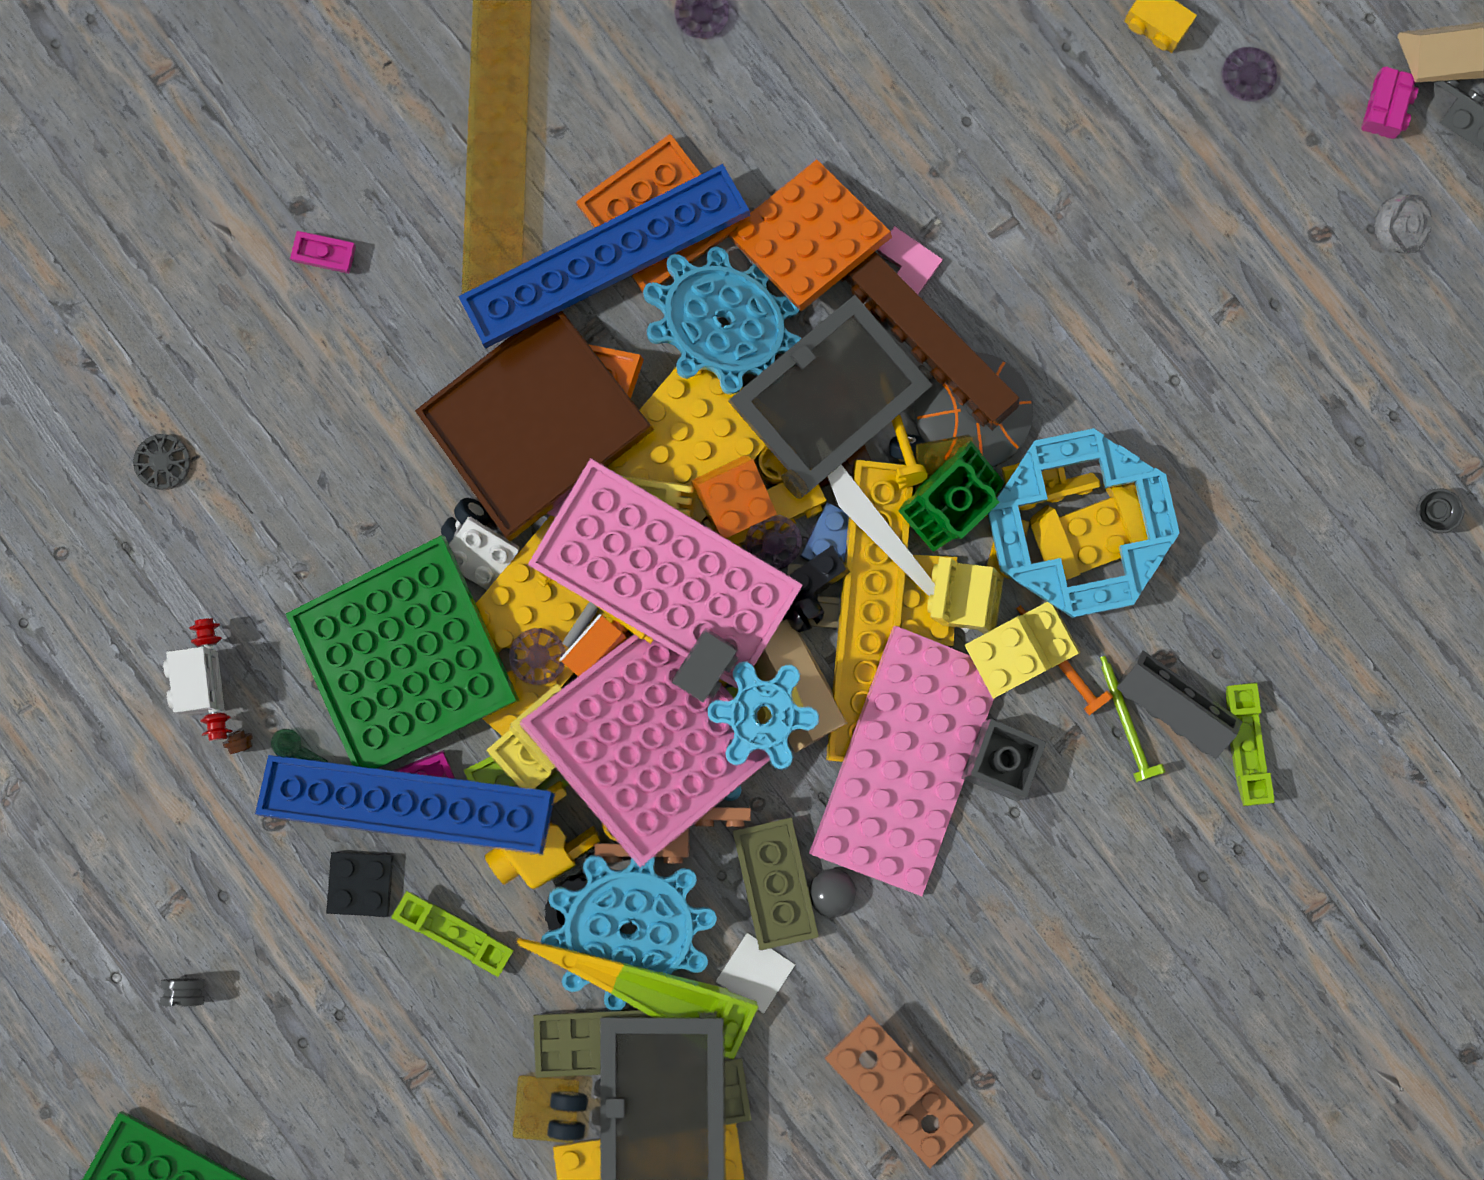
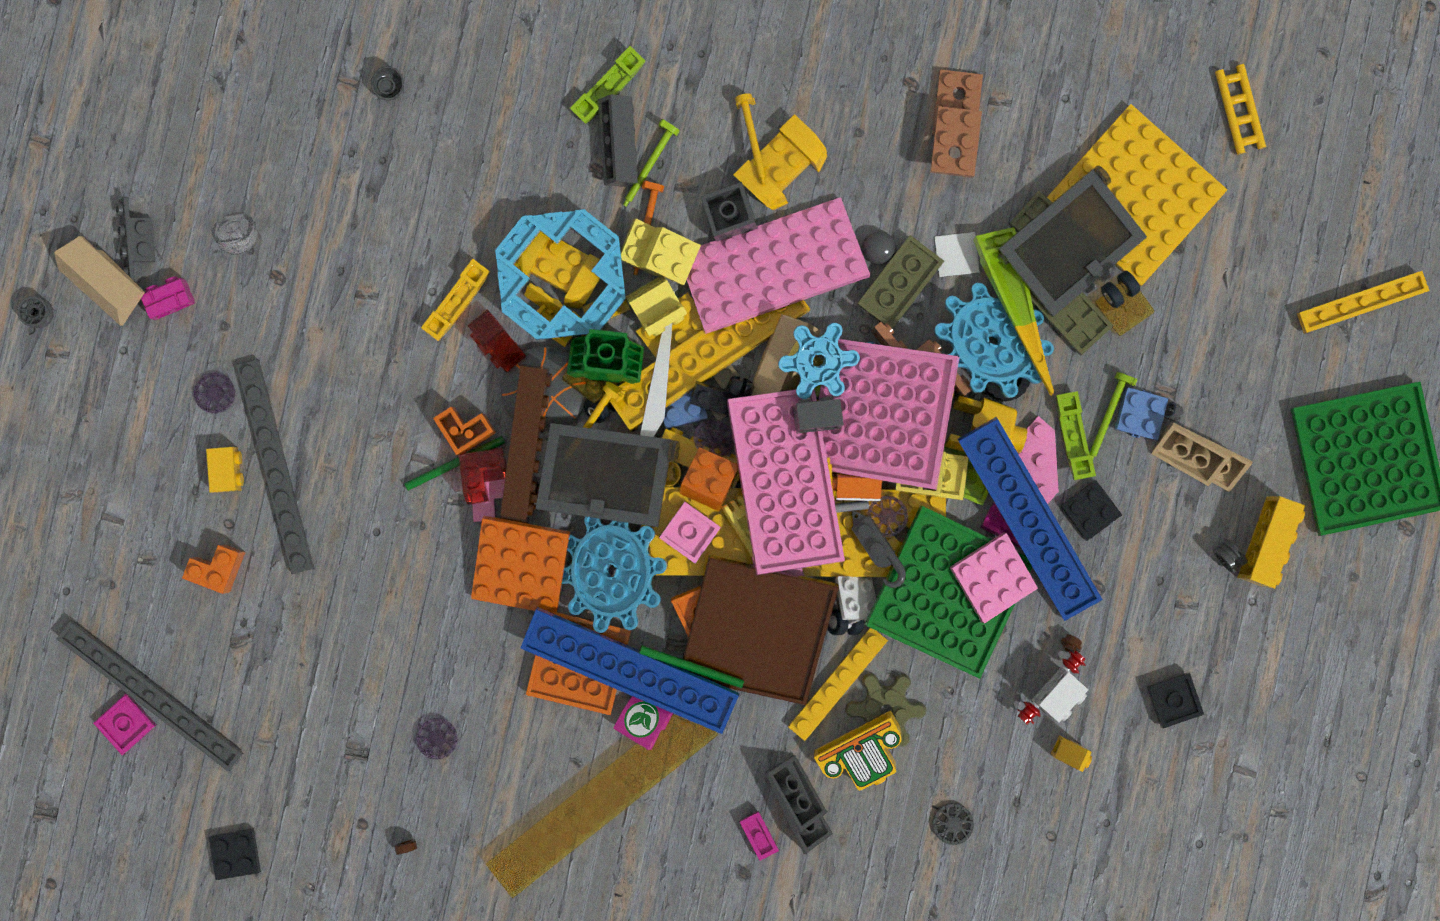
camera: 130 degrees left, 5 degrees up
(84, 803) = (1175, 700): none -> black plate
(124, 643) = (1071, 753): none -> yellow slope
(157, 1049) = (1271, 541): none -> yellow brick
(288, 744) = (1049, 615): clear green plate -> none
(314, 426) = (862, 752): none -> brick
(314, 1050) = (1200, 457): none -> tan slope
(319, 318) = (799, 803): none -> dark grey slope
(346, 509) = (892, 695): none -> olive plate
(377, 715) = (993, 577): none -> bright pink plate
(388, 1065) = (1178, 411): none -> dark grey hinge
(408, 460) = (837, 683): none -> yellow plate
(415, 1027) = (1141, 414): none -> medium blue plate
(460, 873) = (1040, 457): none -> bright pink plate
(469, 1038) = (1122, 380): none -> lime piece
(514, 616) = (877, 546): none -> dark grey plate
(539, 226) = (642, 722): none -> slope
(554, 321) = (691, 666): none -> green piece
(695, 430) = (689, 532): none -> bright pink plate
(945, 270) = (477, 470): none -> clear red brick
(972, 257) = (451, 464): none -> green piece
(1000, 283) = (463, 435): none -> orange brick
(1011, 862) = (783, 162): none -> yellow piece
(1067, 399) = (495, 340): none -> clear red brick
(1113, 876) = (743, 101): none -> yellow piece
(1121, 73) = (275, 466): none -> dark grey plate
(1143, 395) = (457, 300): none -> yellow slope

